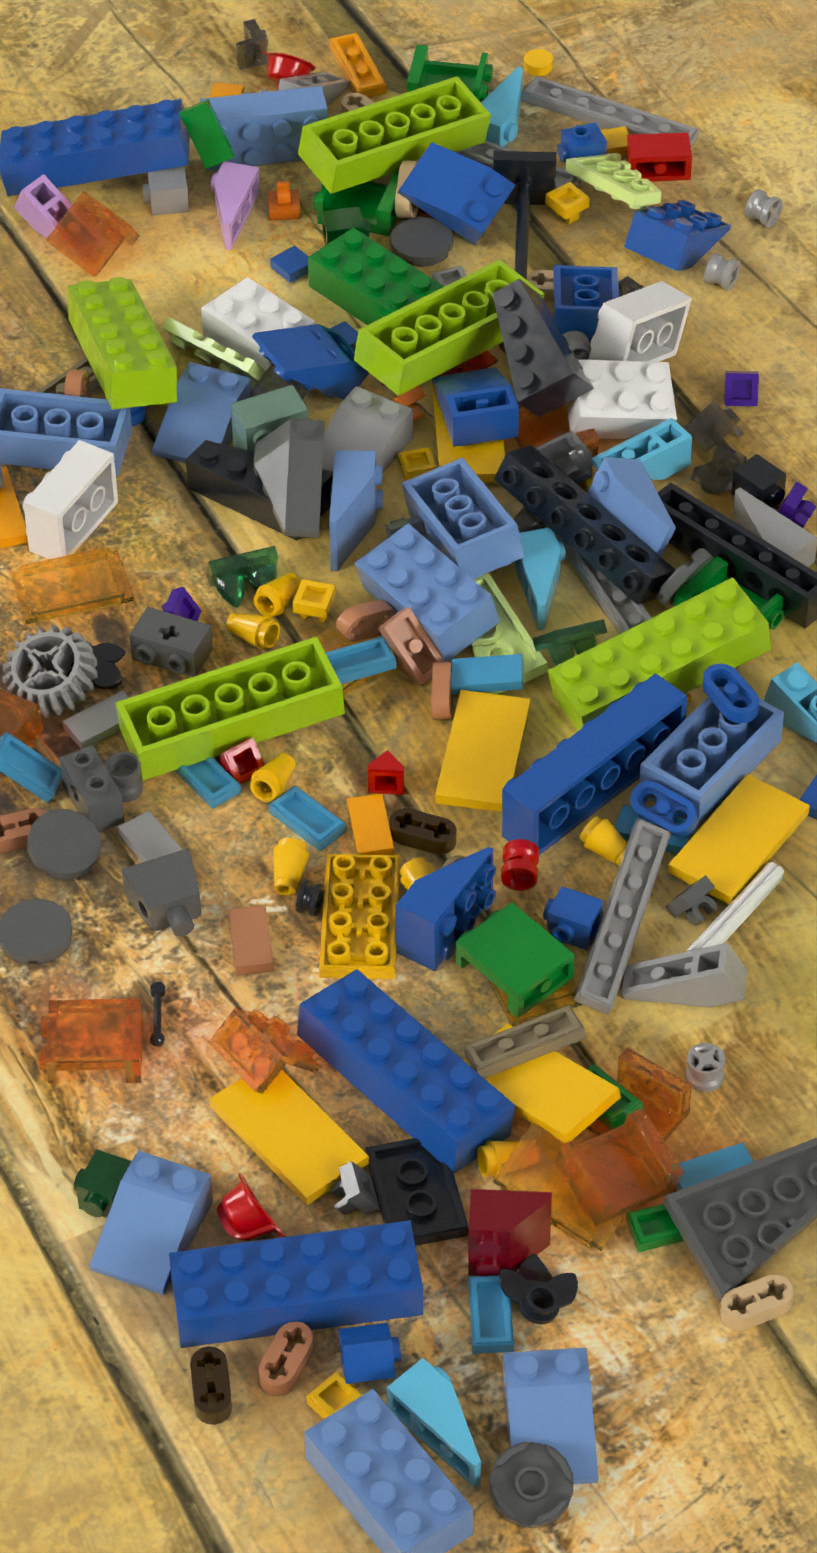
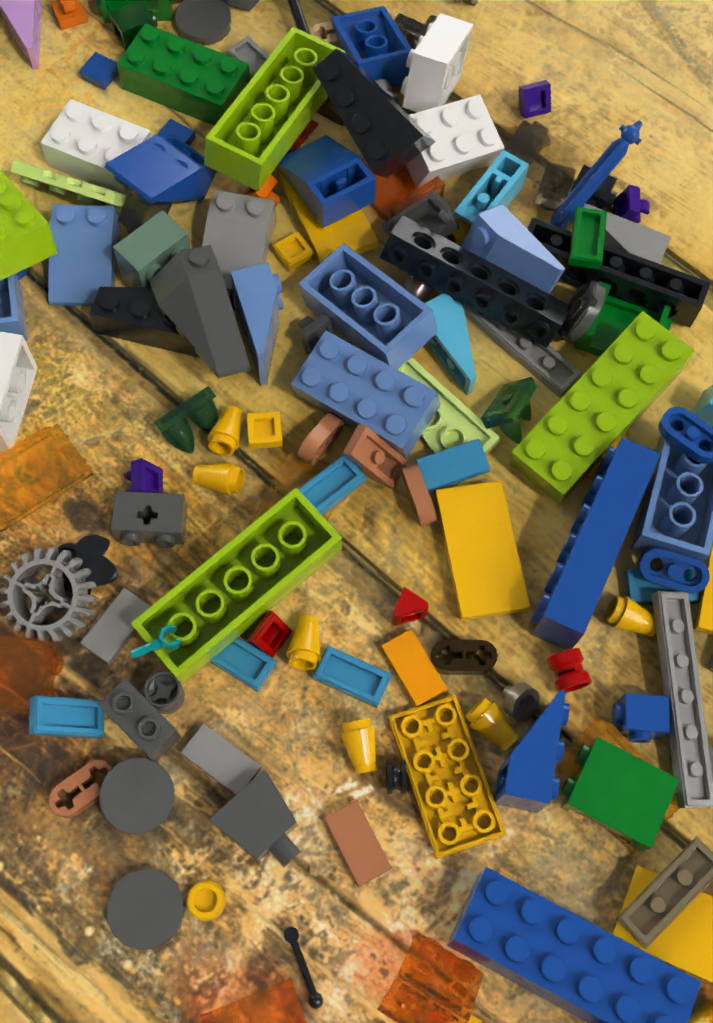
camera: 25 degrees left, 20 degrees up
(92, 942) = (206, 900): none -> yellow tile
(143, 720) = (158, 643): none -> teal hand
(717, 511) = (587, 238): none -> green tile
(756, 460) = (596, 174): none -> blue wheel

